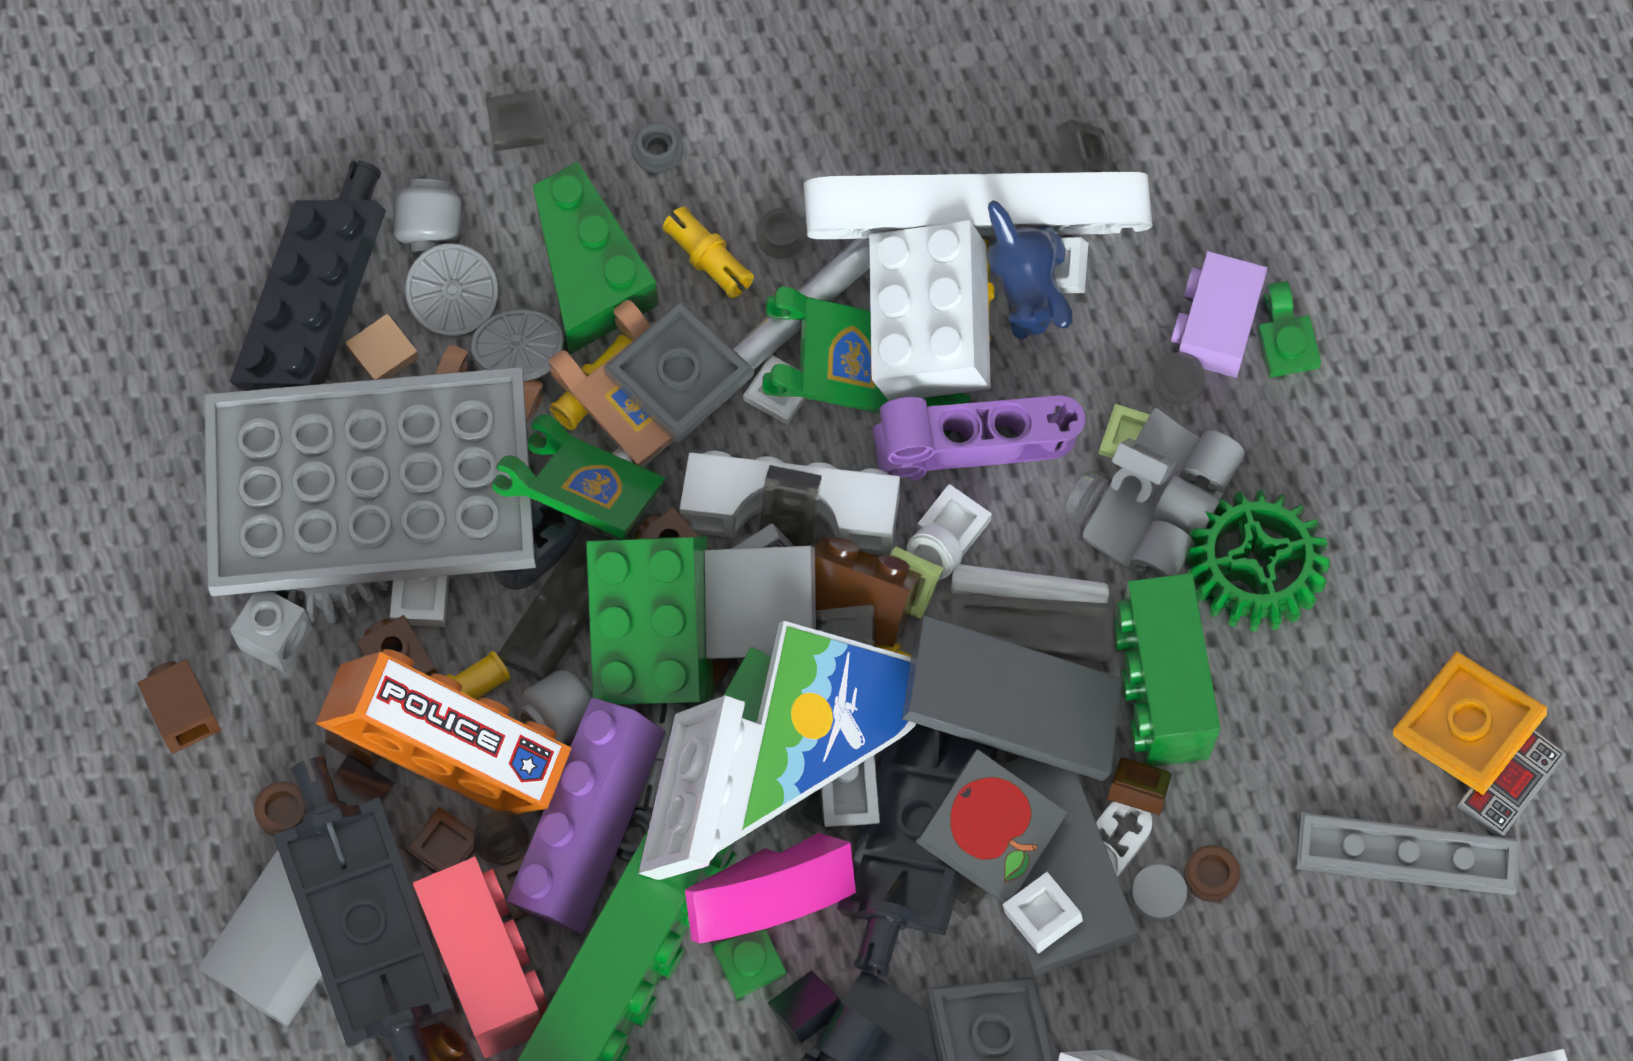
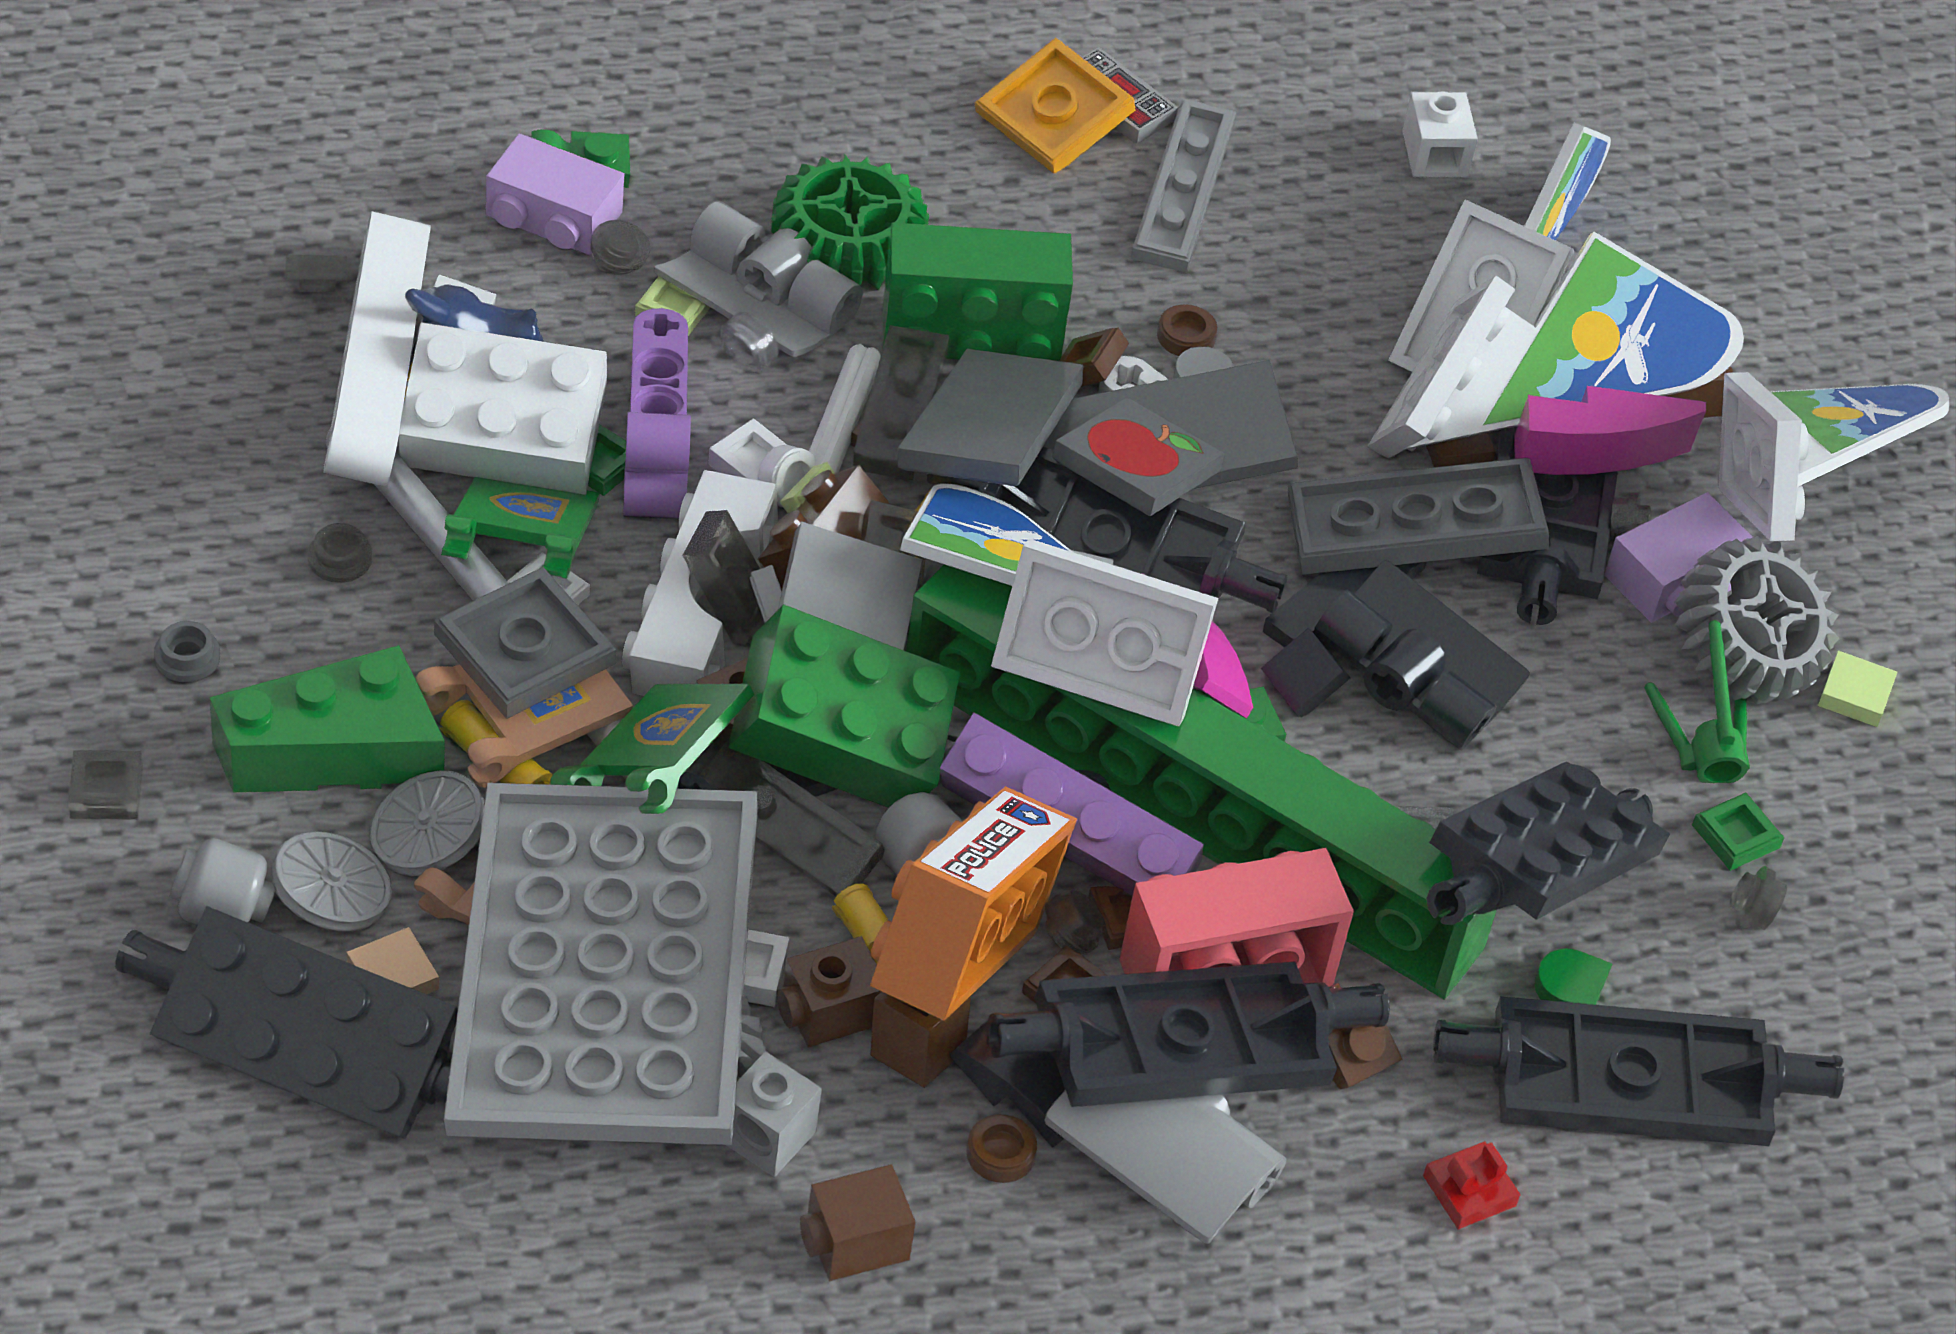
camera: 90 degrees left, 20 degrees down
(708, 252) = (348, 622): yellow pin -> none
(1042, 912) = (1242, 426): white plate -> none
(1142, 463) = (734, 271): light grey tile -> none

